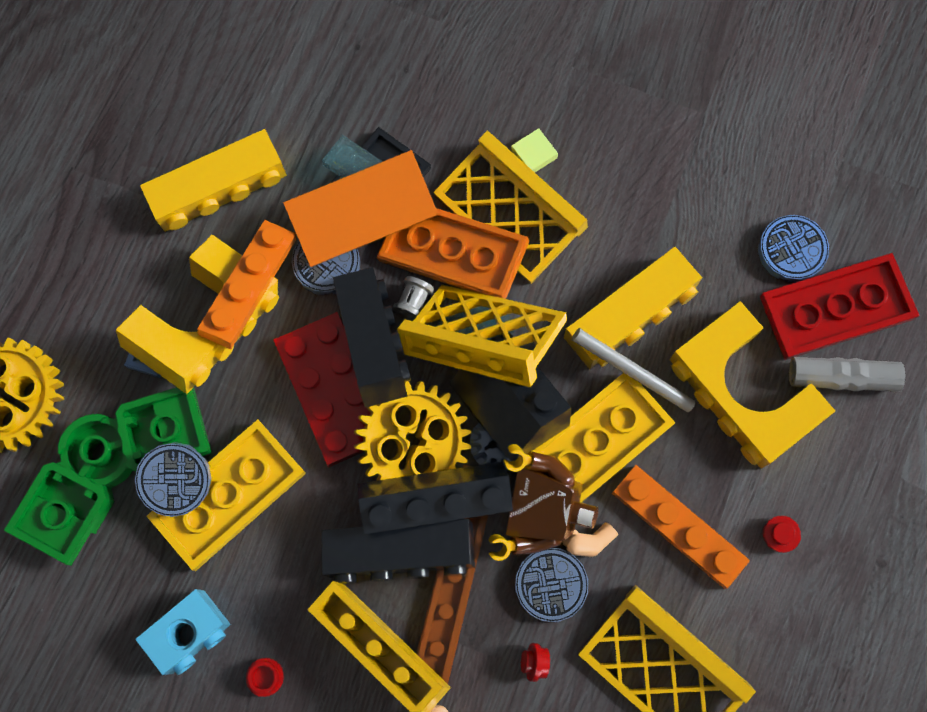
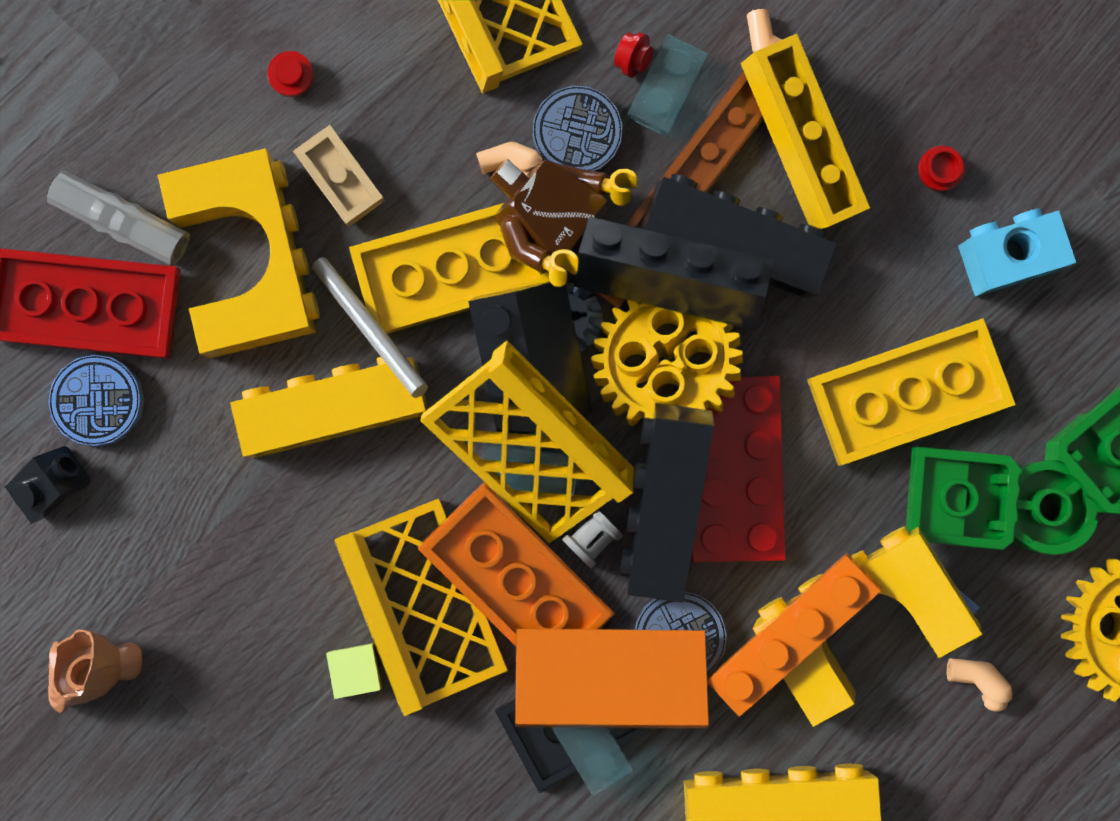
camera: 160 degrees left, 10 degrees up
(102, 319) = (986, 677): none -> light nougat arm
(173, 479) = (970, 428): tile -> none
(499, 651) = (667, 85): none -> clear light blue plate
(681, 527) = (401, 133): orange plate -> none
(705, 80) = (88, 667): none -> nougat hair
(708, 473) = (339, 176): none -> tan plate
(795, 182) = (47, 482): none -> black bracket

